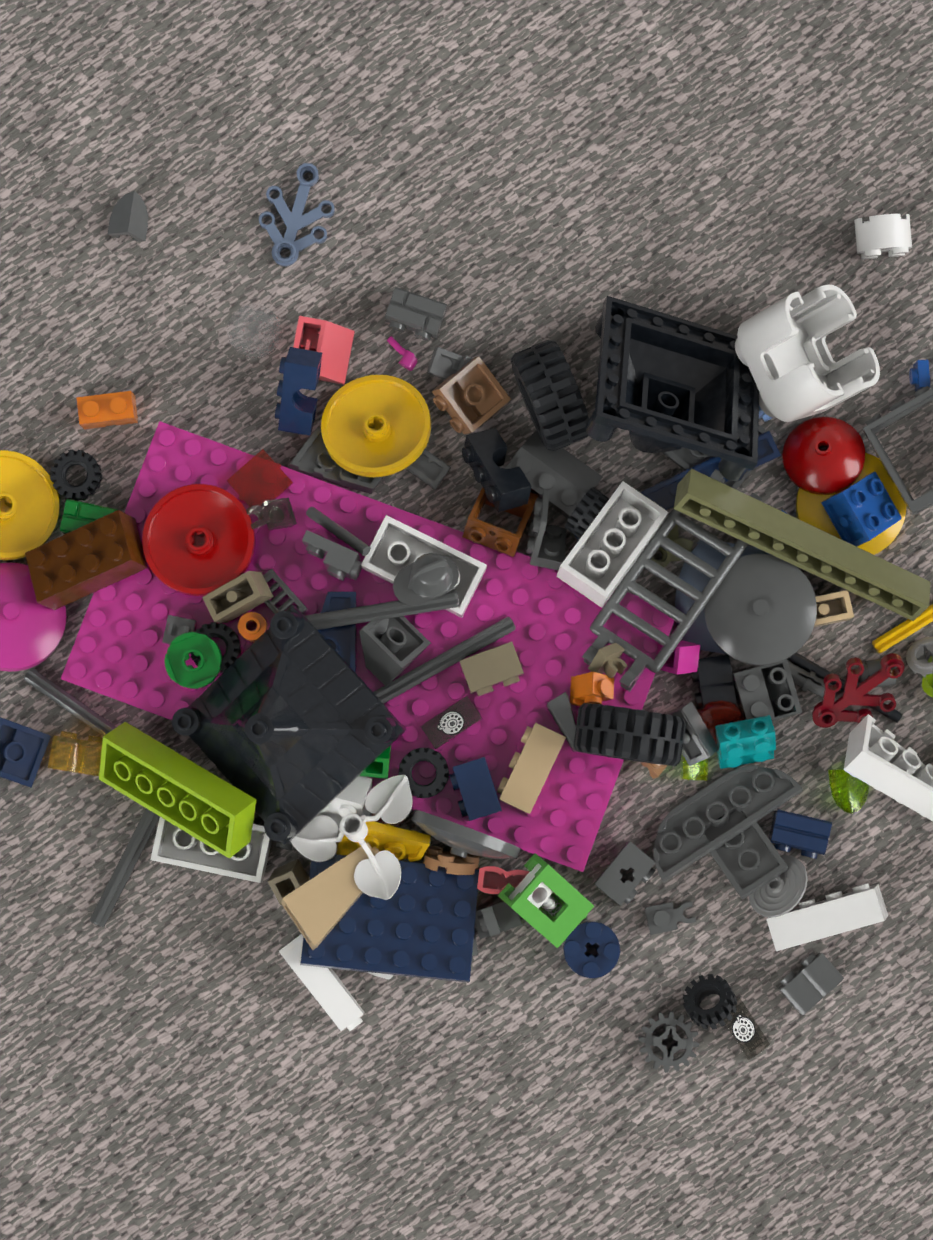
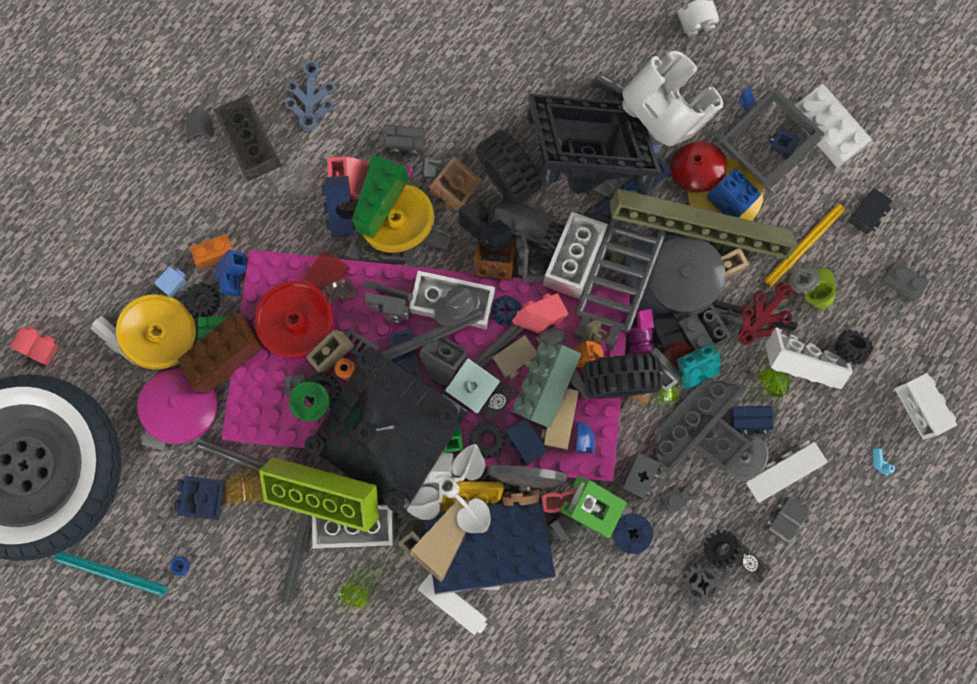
camera: 15 degrees left, 5 degrees down
(40, 438) = (171, 281): none -> light blue brick
(123, 443) = (229, 270): none -> blue brick
(193, 256) = (247, 138): none -> clear smoke brick
(203, 936) = (362, 595): none -> clear neon green brick
(359, 386) = (378, 195): none -> green wedge
(422, 693) = (472, 385): none -> light aqua plate
(503, 609) = (500, 317): none -> dark blue gear
(523, 716) = (546, 382): none -> sand green brick
(542, 618) = (541, 314): none -> coral slope
(546, 653) = (551, 334): none -> dark grey brick
(559, 804) = (584, 439): none -> blue brick
(672, 690) = (640, 342): none -> magenta wheel
(729, 304) = (609, 86): none -> dark grey slope

